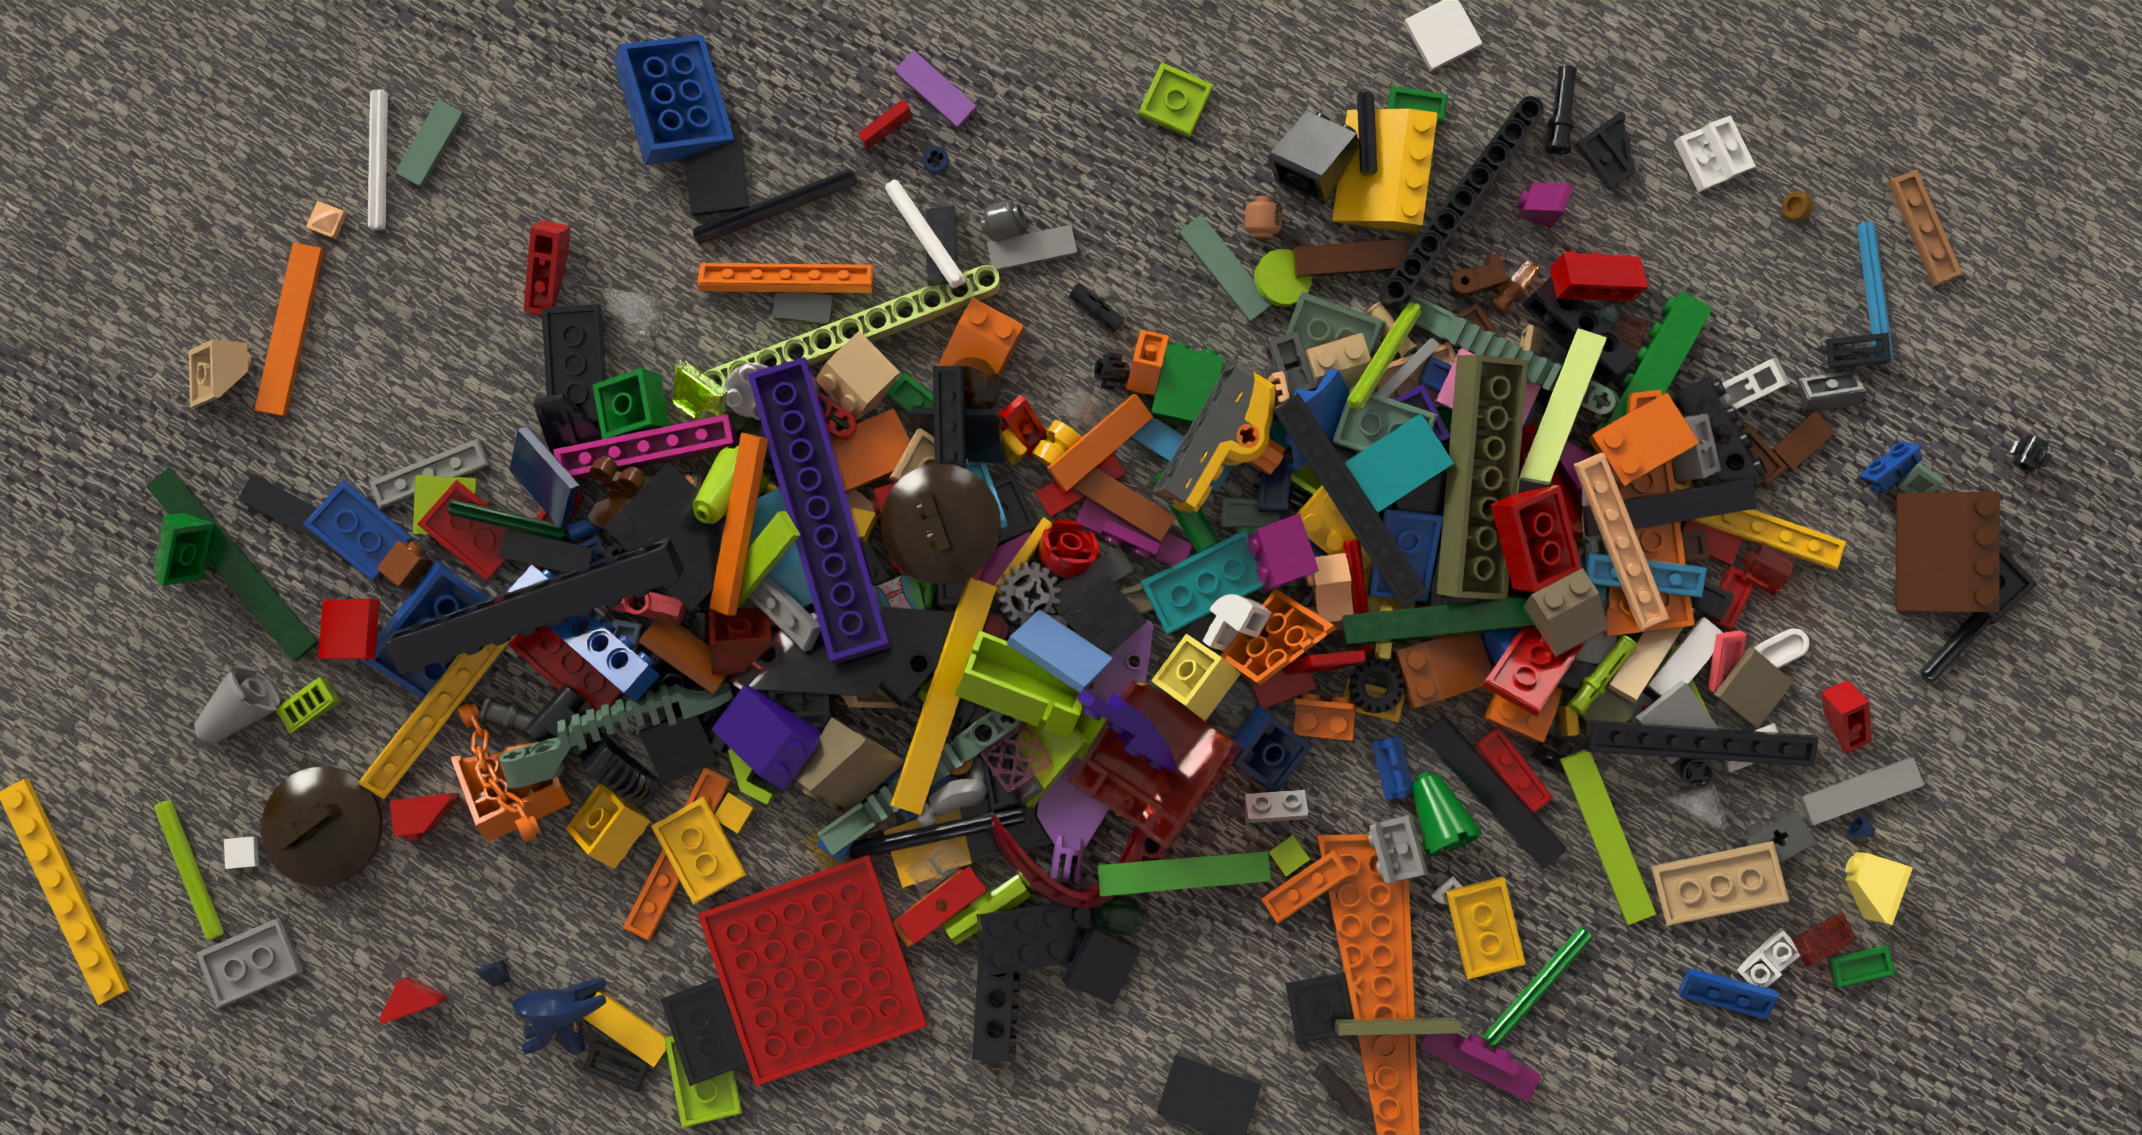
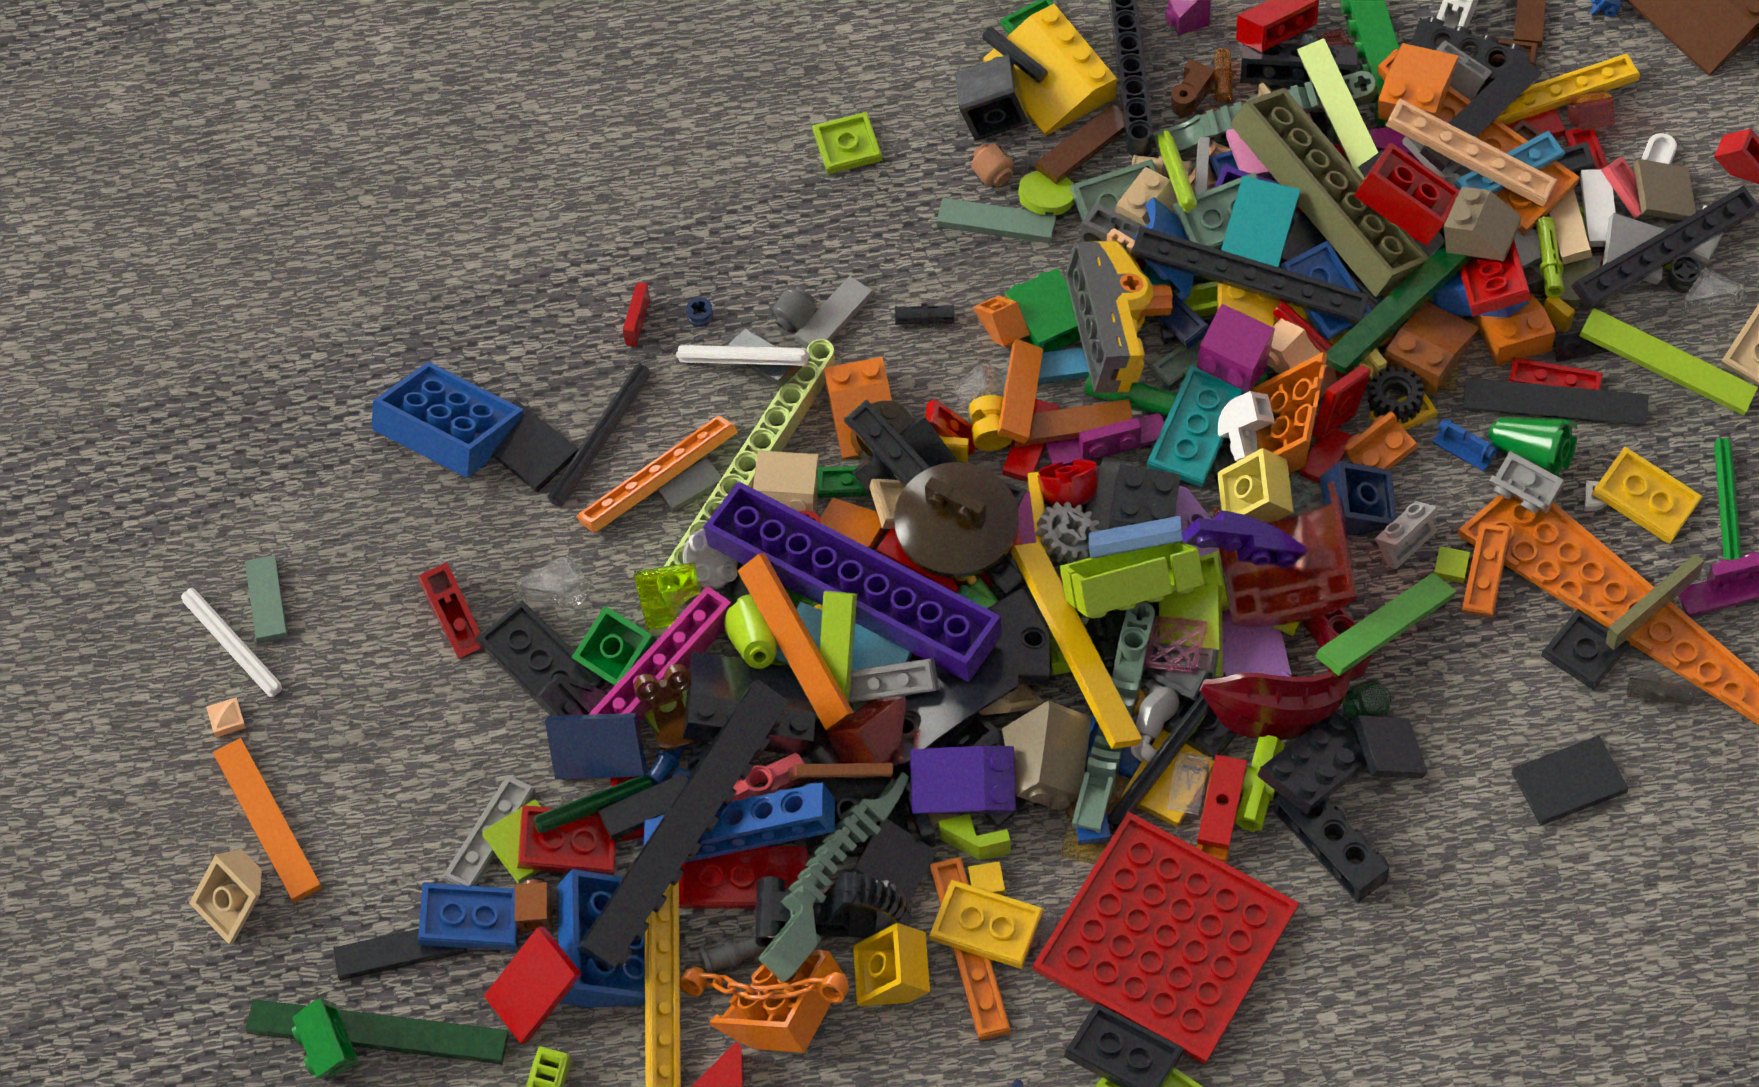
camera: 40 degrees left, 25 degrees down
(935, 89) = (652, 267): medium lavender tile -> none
(1111, 371) = (979, 343): black gear -> none

